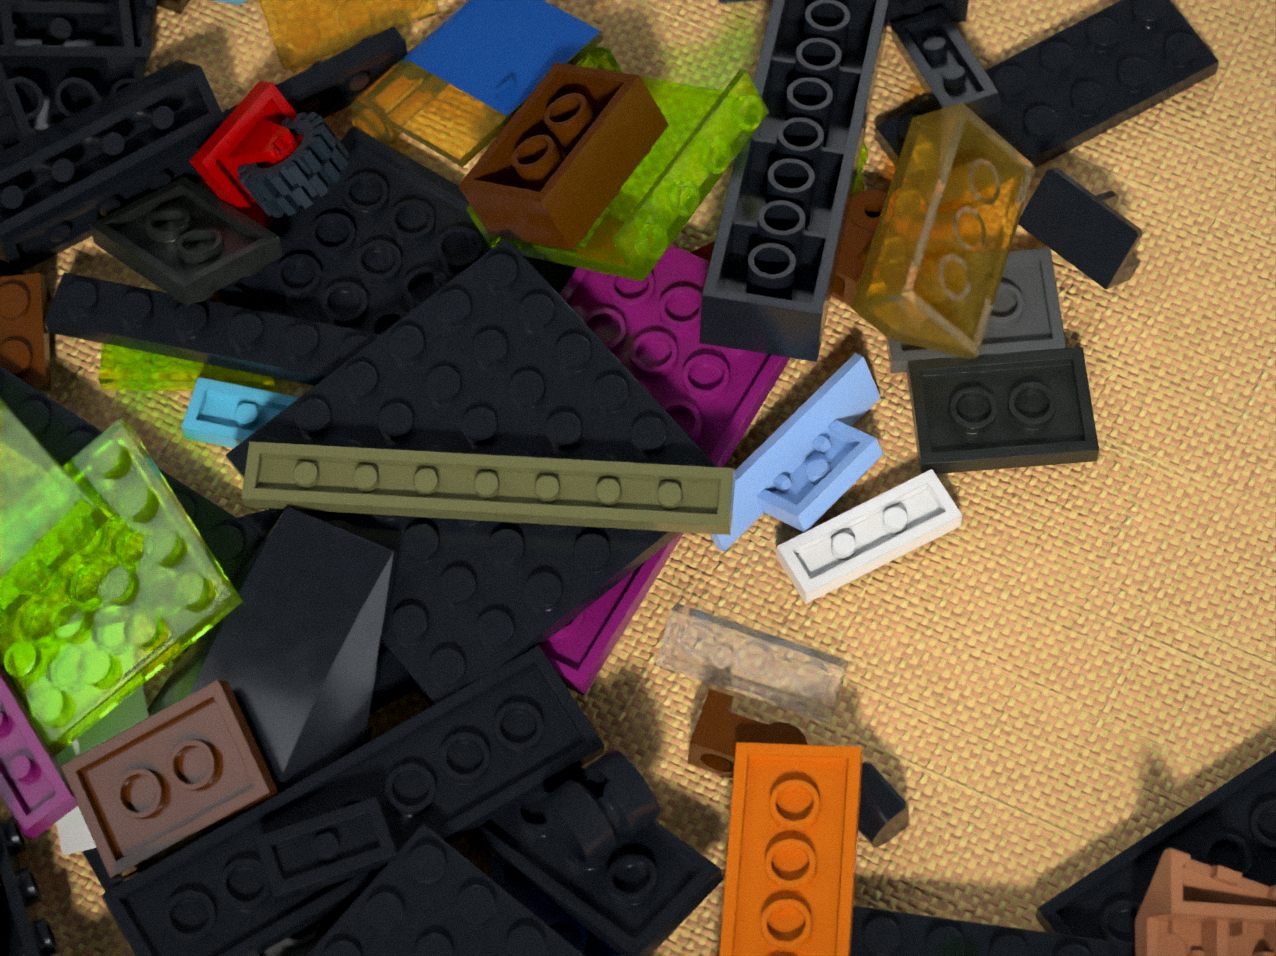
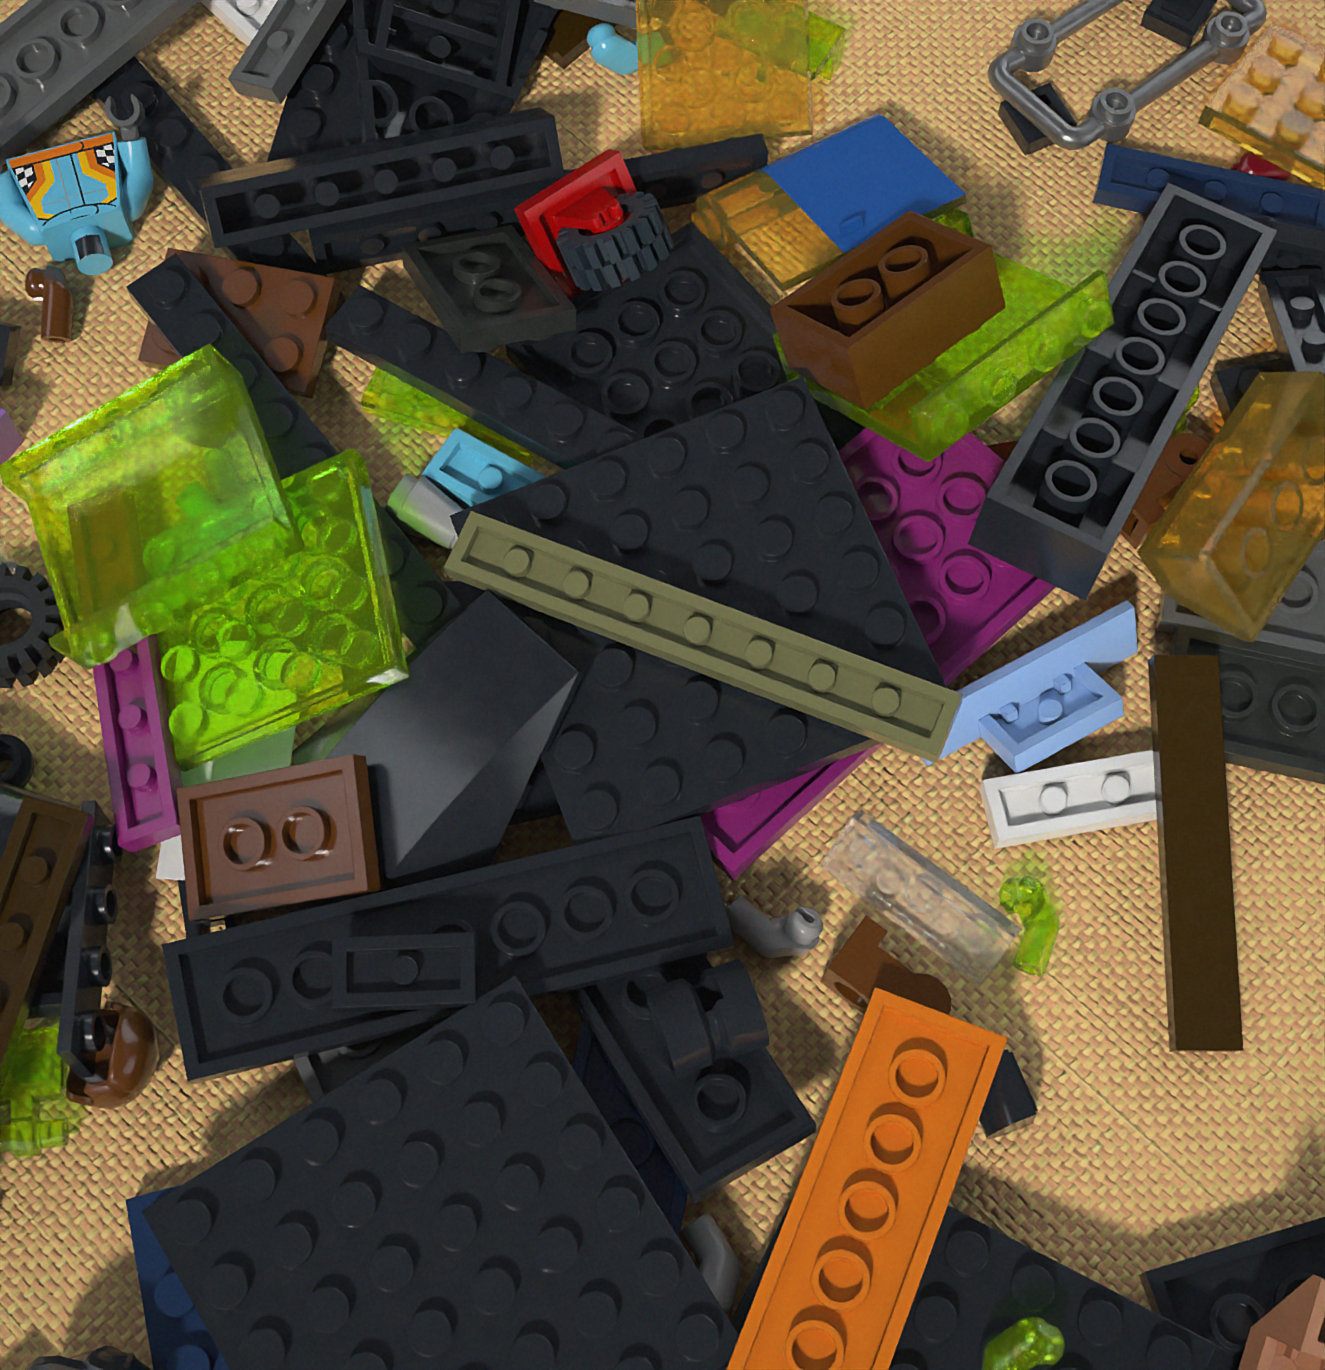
camera: 15 degrees right, 5 degrees up
(198, 462) = (423, 511): none -> light grey cone
(638, 735) = (777, 935): none -> light grey arm
(864, 653) = (1039, 919): none -> clear neon green arm
(978, 553) = (1194, 855): none -> dark brown tile

